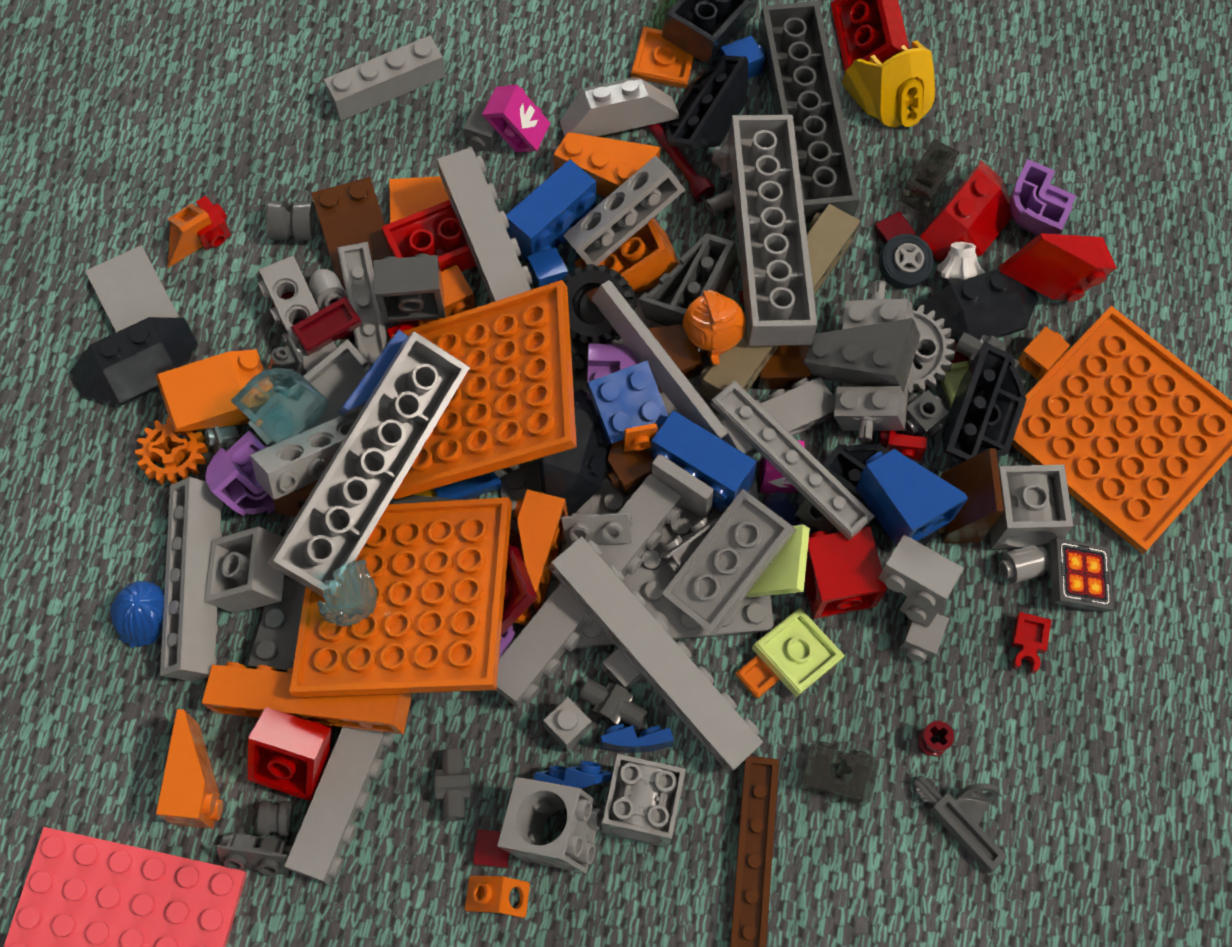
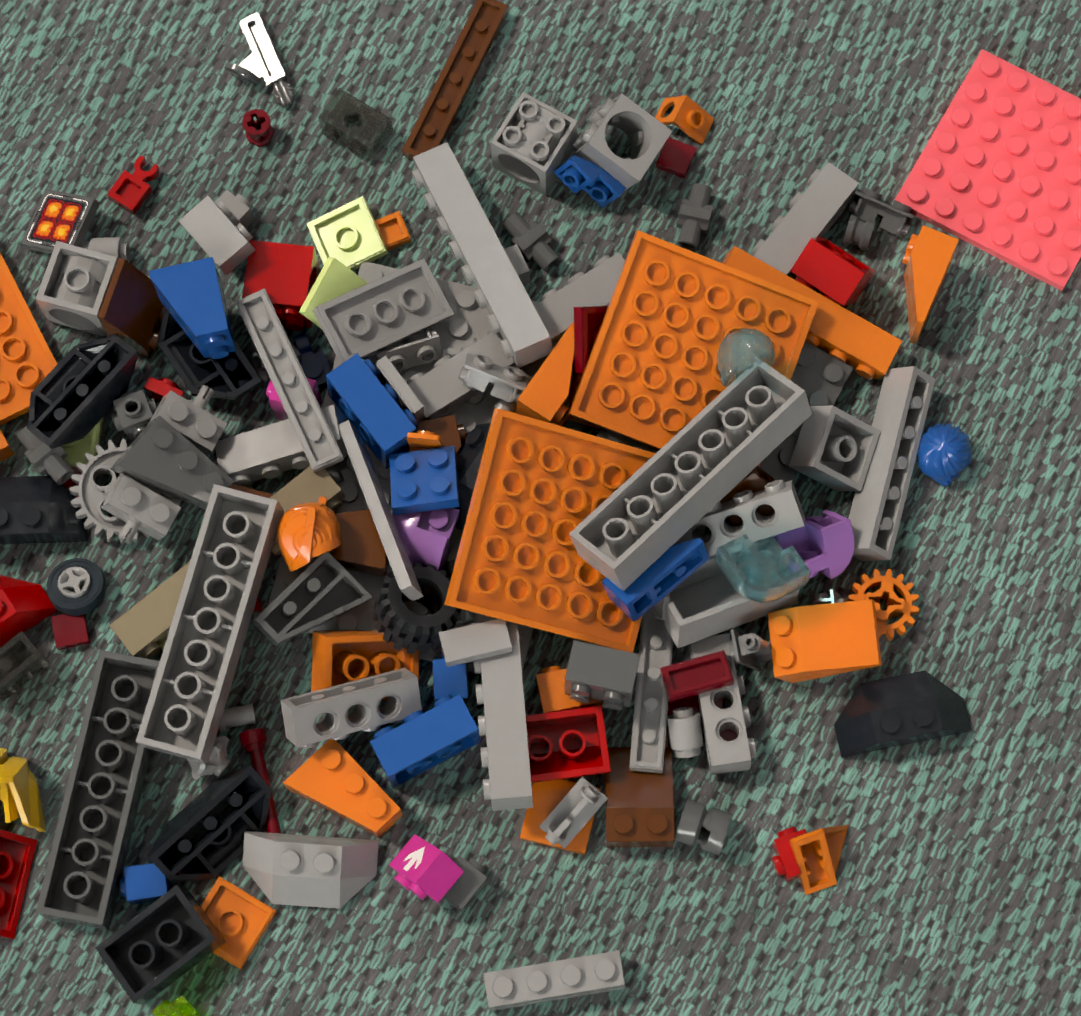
camera: 155 degrees left, 5 degrees up
(130, 289) = (890, 798): light grey tile -> none
(406, 192) = (573, 813): none -> light grey hinge
(531, 275) = (475, 642): none -> light grey tile
(567, 724) = (578, 233): light grey brick -> none
(625, 739) = (532, 206): blue slope -> none
(960, 263) = (24, 558): white rock -> none

